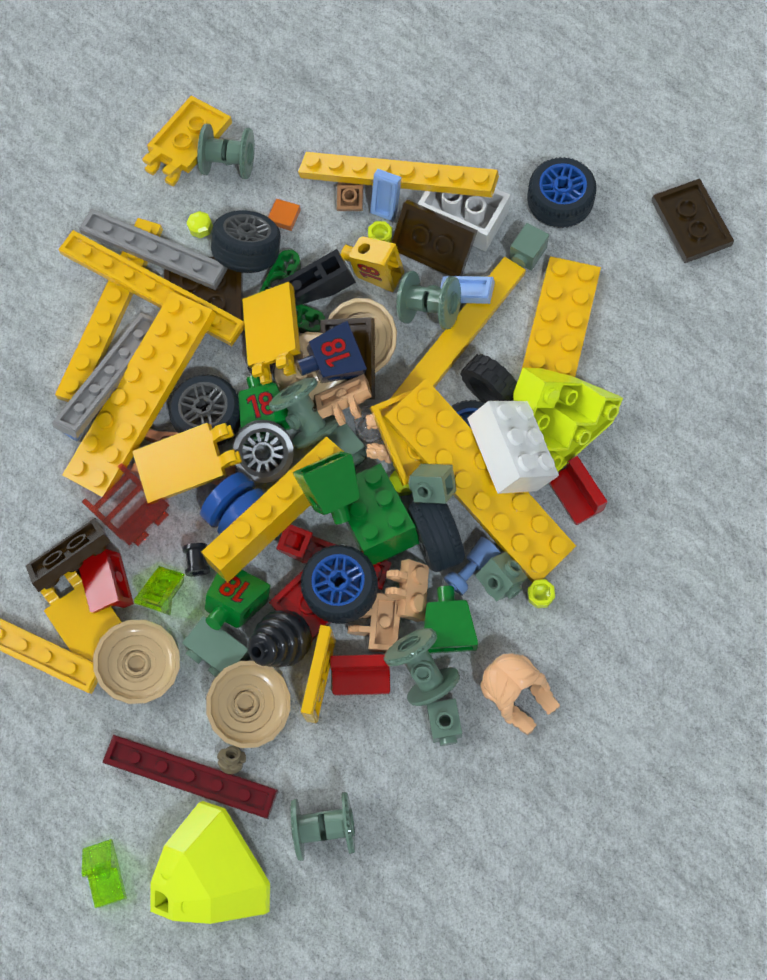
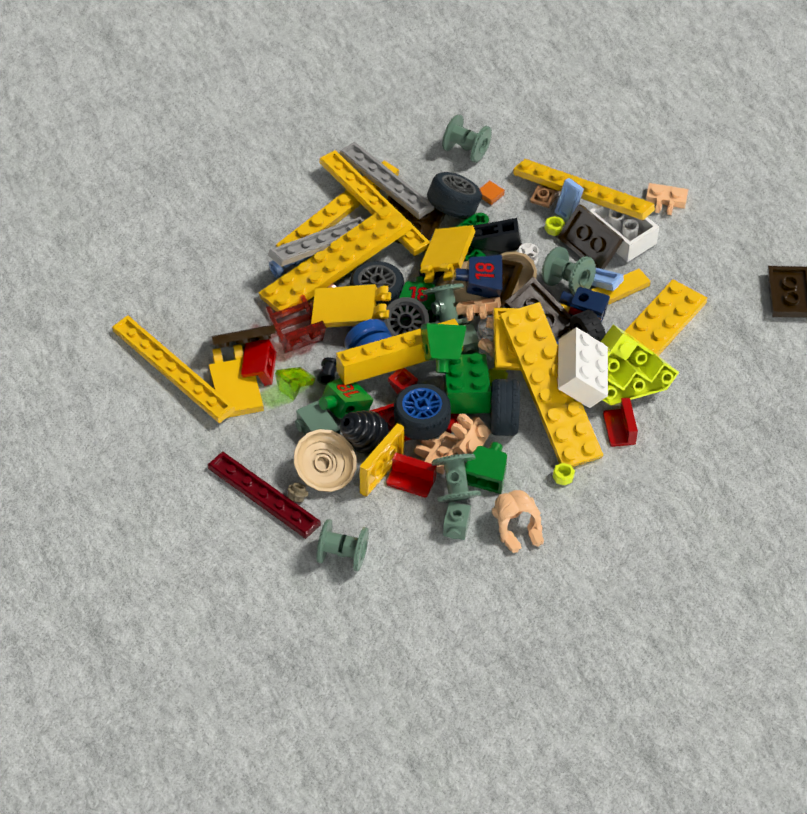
camera: 15 degrees right, 20 degrees down
(103, 873) = (178, 528): clear neon green slope -> none
(136, 661) = (259, 411): tan hat -> none
(178, 139) = (433, 123): yellow tile -> none
(199, 224) = (425, 178): neon yellow tile -> none
(208, 872) = (253, 542): neon yellow brick -> none
(367, 283) = (531, 251): none -> white wheel
(375, 262) = (542, 234): yellow torso -> none
(409, 363) = (534, 293): none -> dark brown plate
(432, 483) = (515, 368): sand green brick -> none
(477, 558) = (529, 438): medium blue piece -> none
(479, 340) = (586, 300): none -> dark blue torso
(491, 139) = (666, 196): none -> light nougat hinge
(502, 577) = (539, 451): sand green brick -> none
(529, 246) = (660, 267): sand green brick -> none
(561, 192) = (700, 242): black wheel -> none

